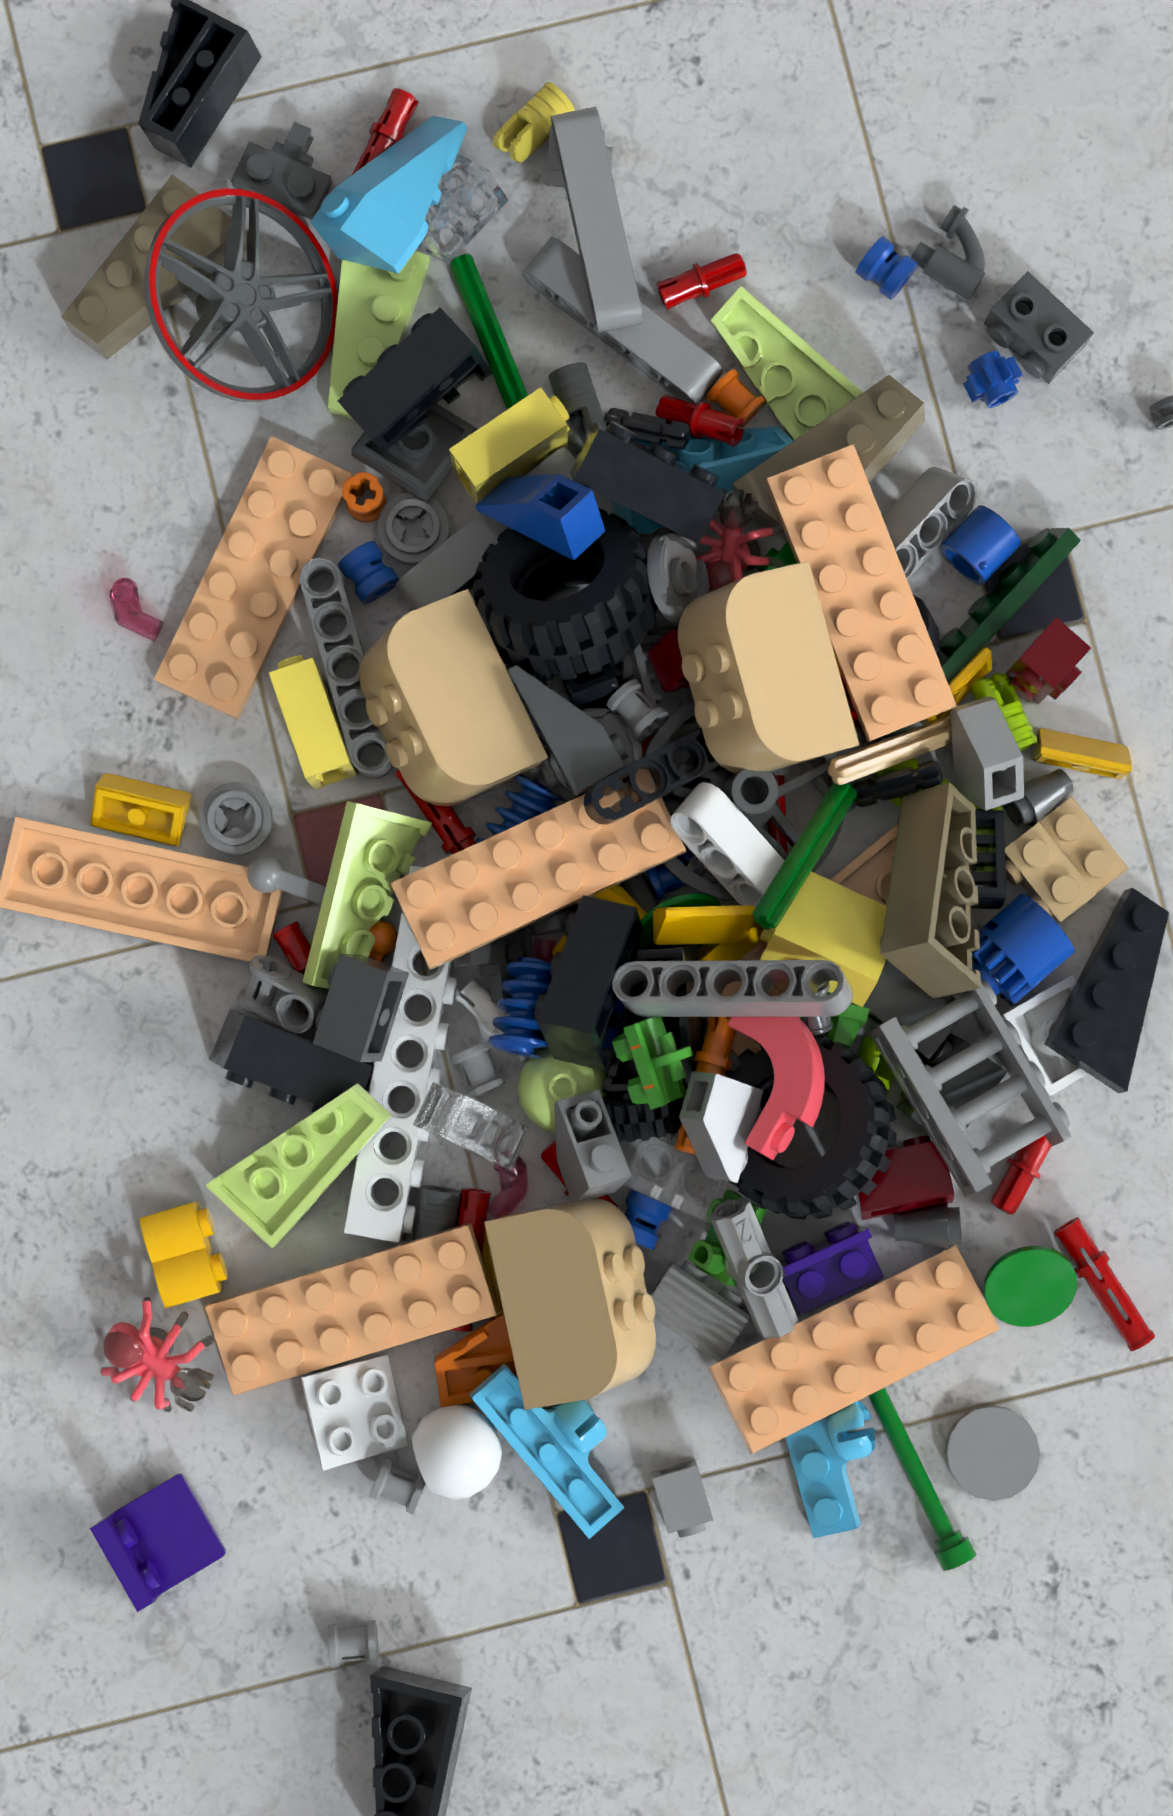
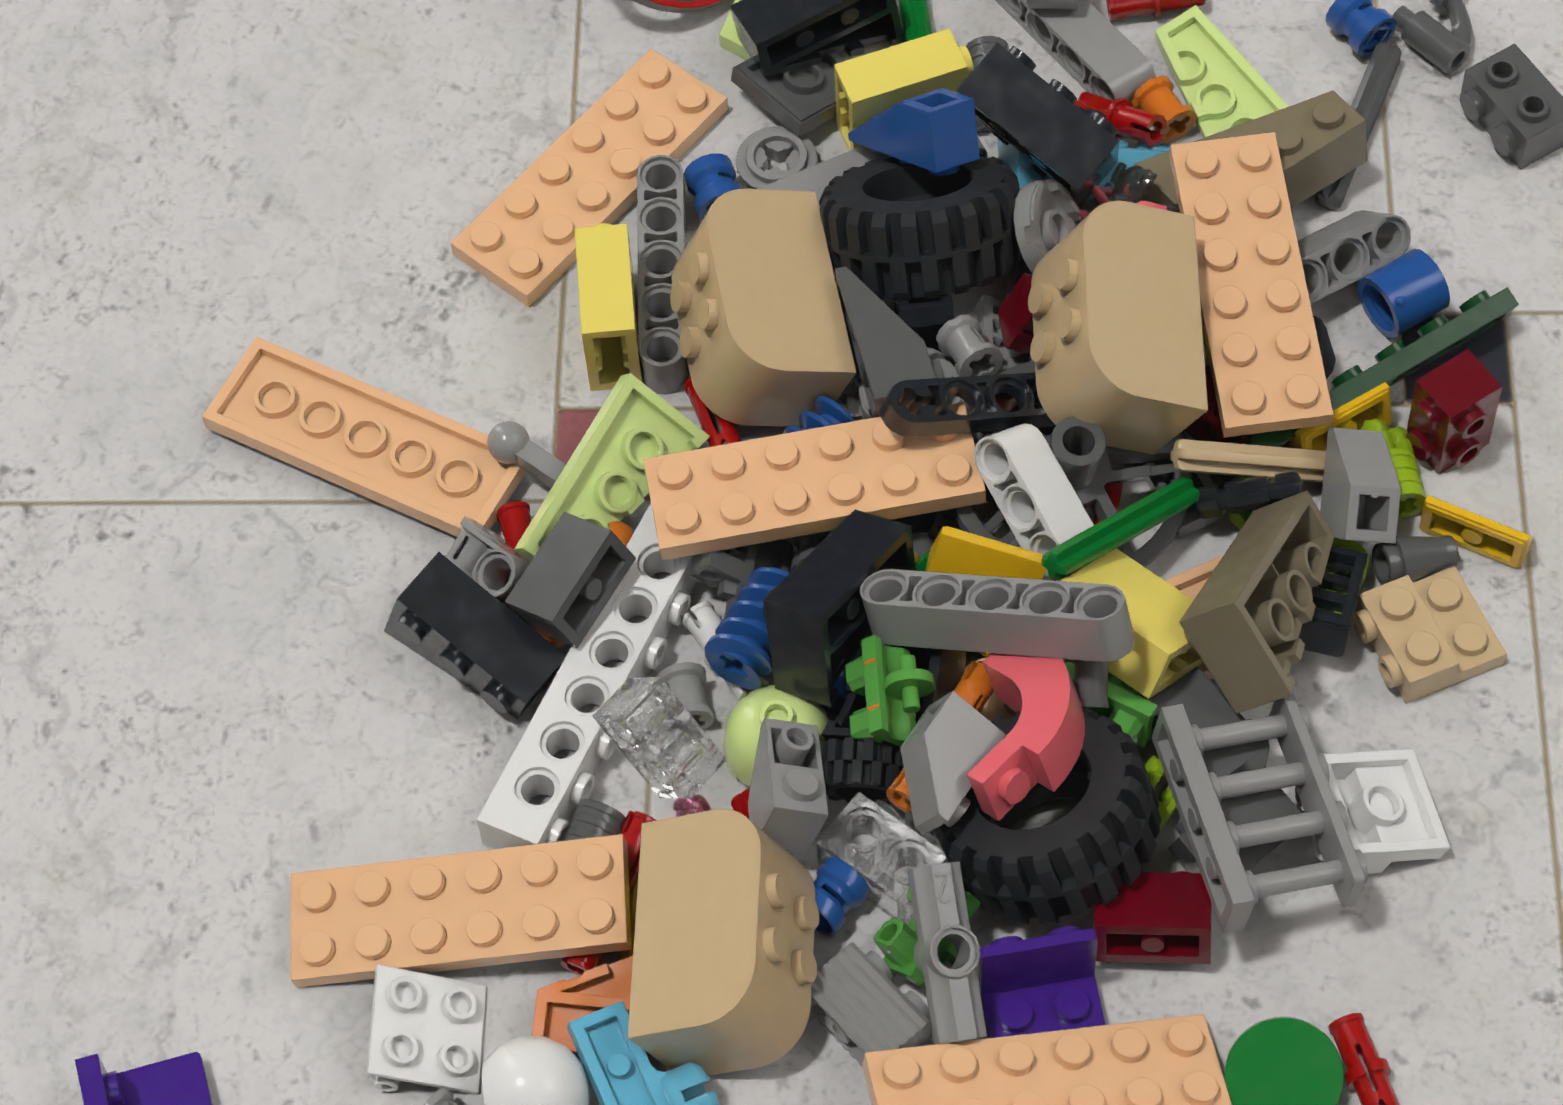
camera: 20 degrees right, 25 degrees down
(128, 610) = (445, 177): clear pink arm -> none
(140, 809) = (392, 366): yellow slope -> none
(148, 1355) = (214, 909): animal -> none
(183, 1253) = (284, 813): yellow brick -> none
(235, 797) = (502, 376): light grey gear -> none
(294, 1169) = (434, 751): yellowish green wing -> none
(355, 487) = (732, 117): orange bush -> none
(909, 346) = (1368, 104): none -> dark grey axle
(930, 1226) = (1177, 984): dark grey cone -> none
(992, 379) = (1454, 142): blue gear -> none
(1020, 949) = (1356, 697): blue gear -> none
(1020, 1175) = (1307, 949): red axle -> none
(1110, 999) = (1453, 777): black wing -> none

